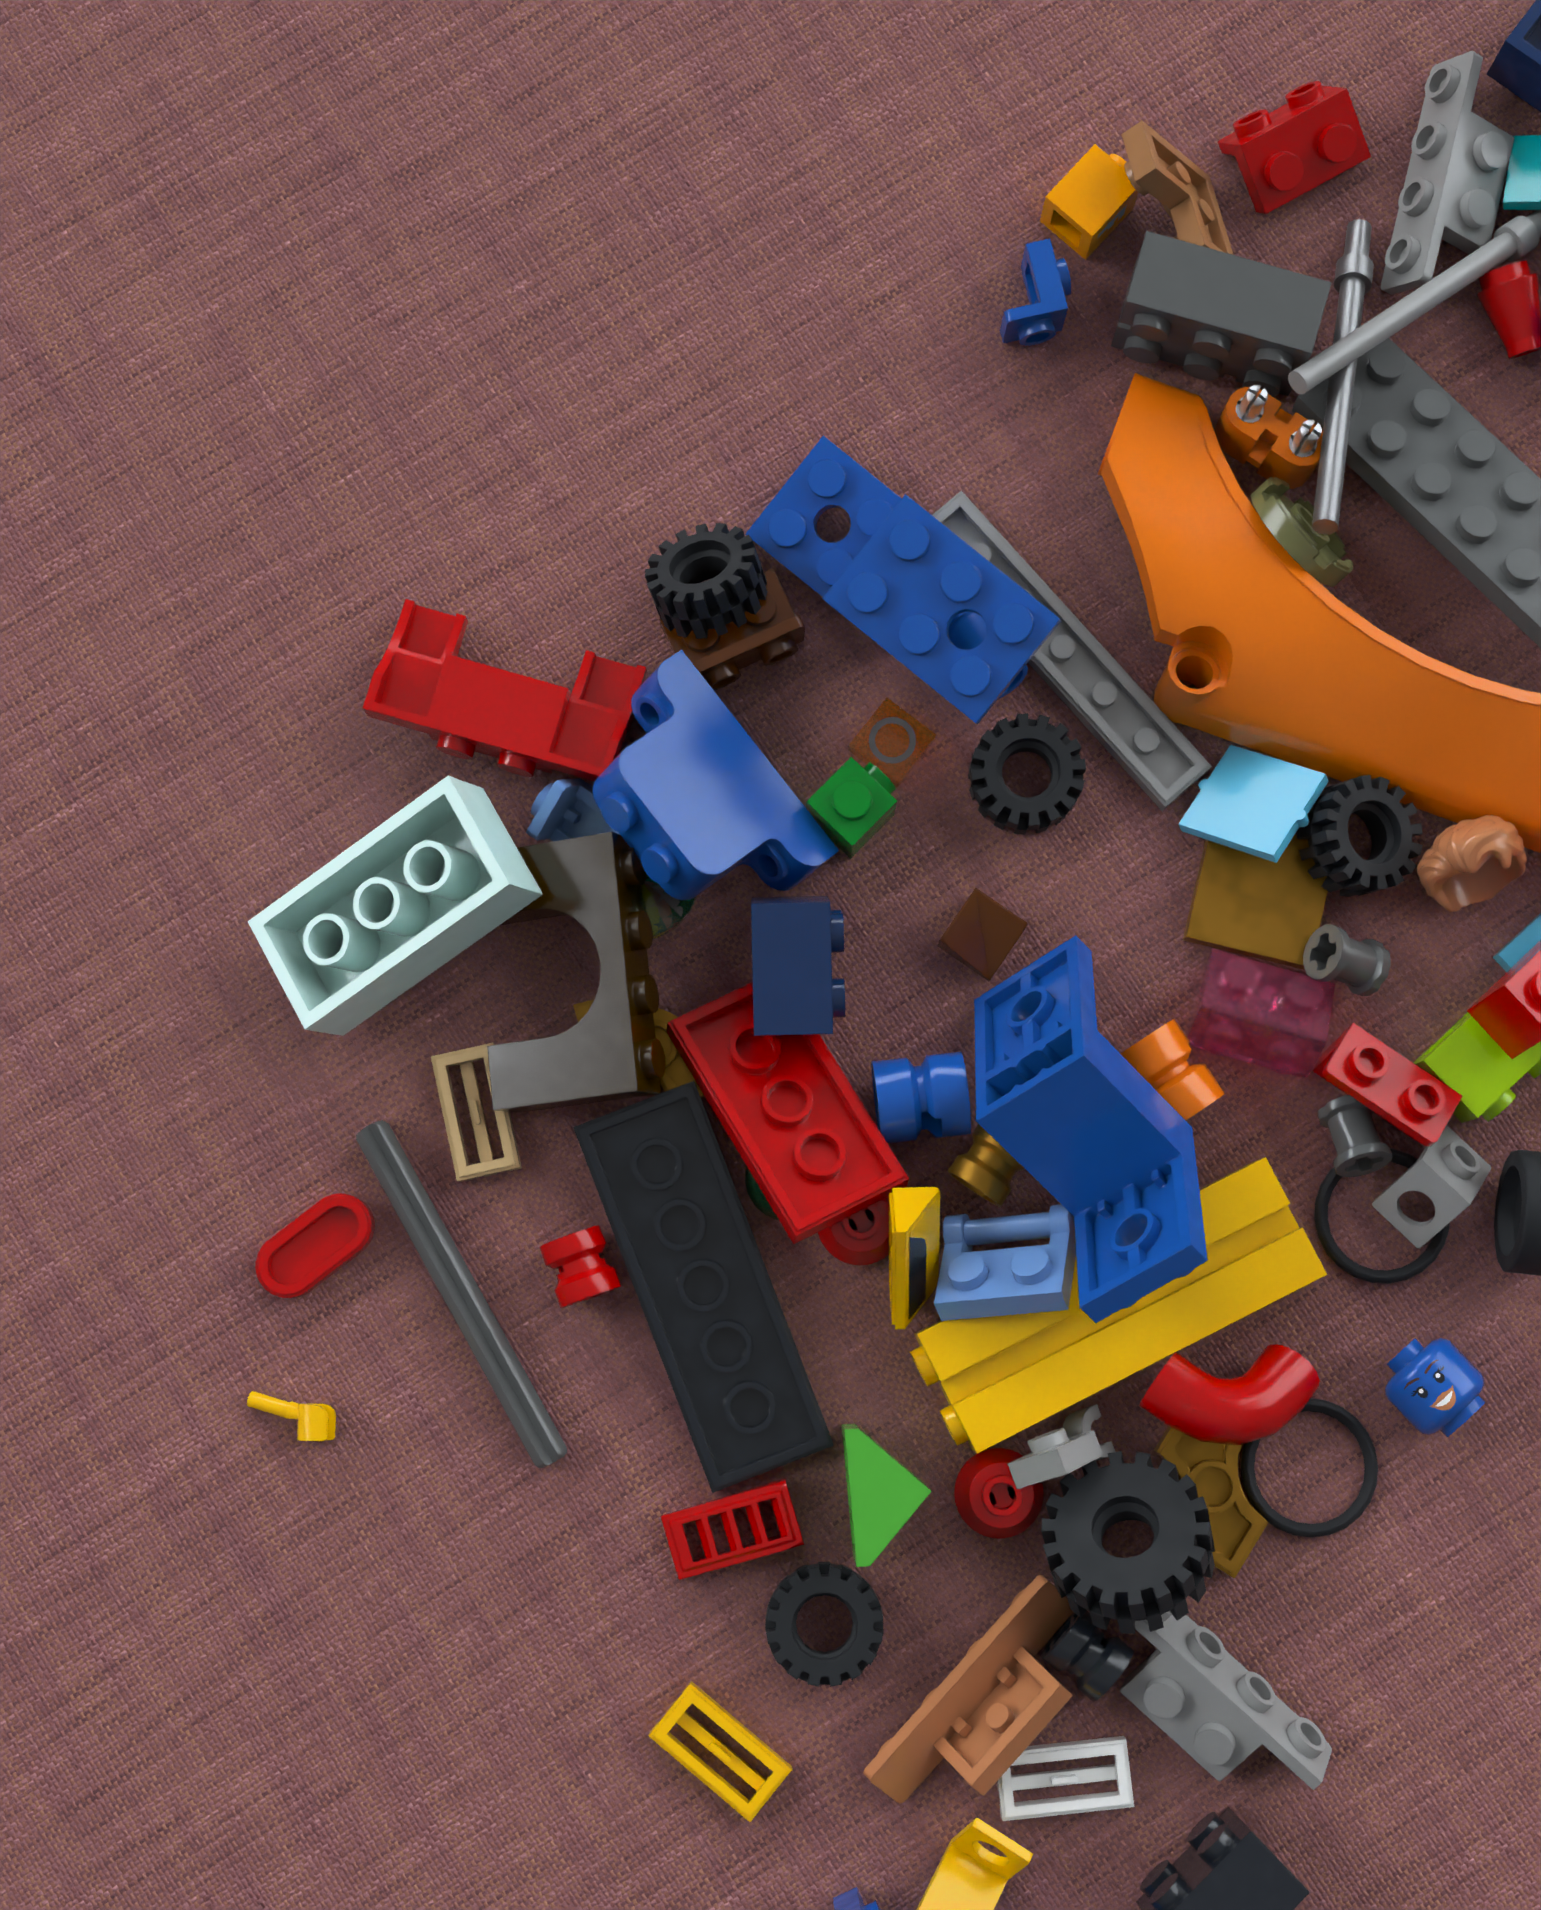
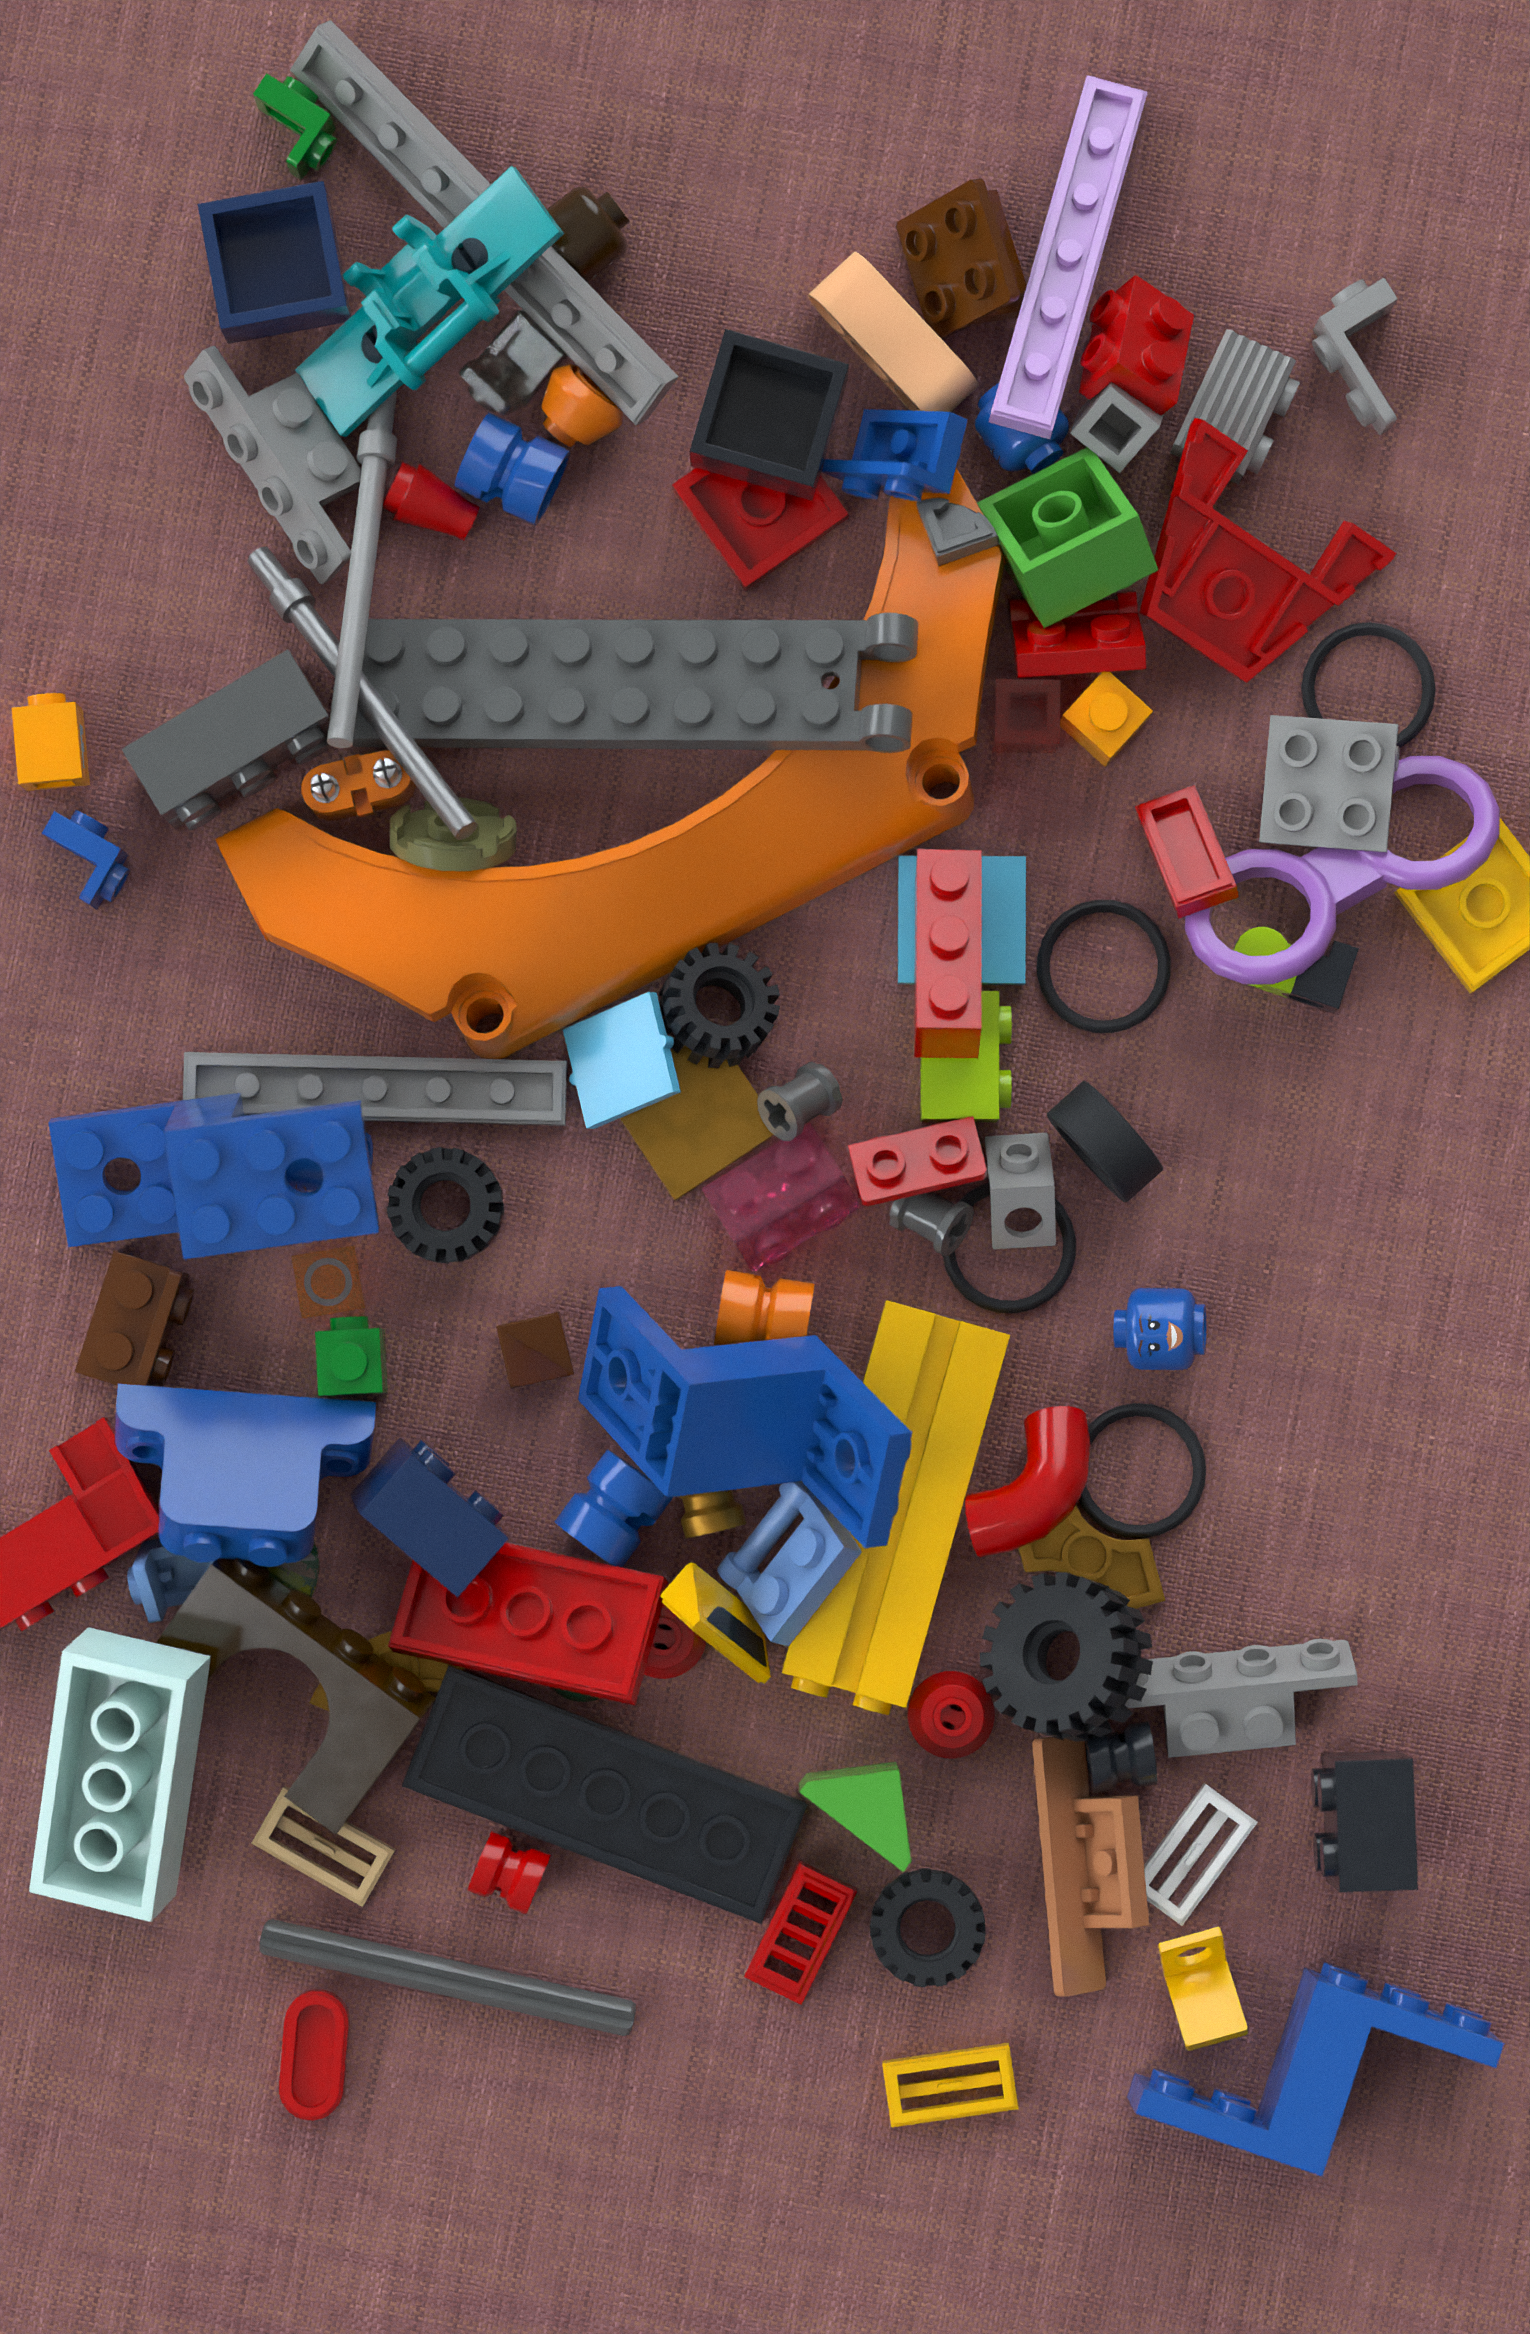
camera: 50 degrees left, 5 degrees up
(315, 1421) = (444, 2168): yellow hand -> none
(733, 590) = (54, 1307): black tyre -> none
(1061, 1450) = (960, 1646): light grey plate -> none
(1178, 184) = (110, 672): medium nougat plate -> none
(1296, 144) = (149, 545): red bracket -> none
(1472, 862) = (812, 942): nougat hair -> none

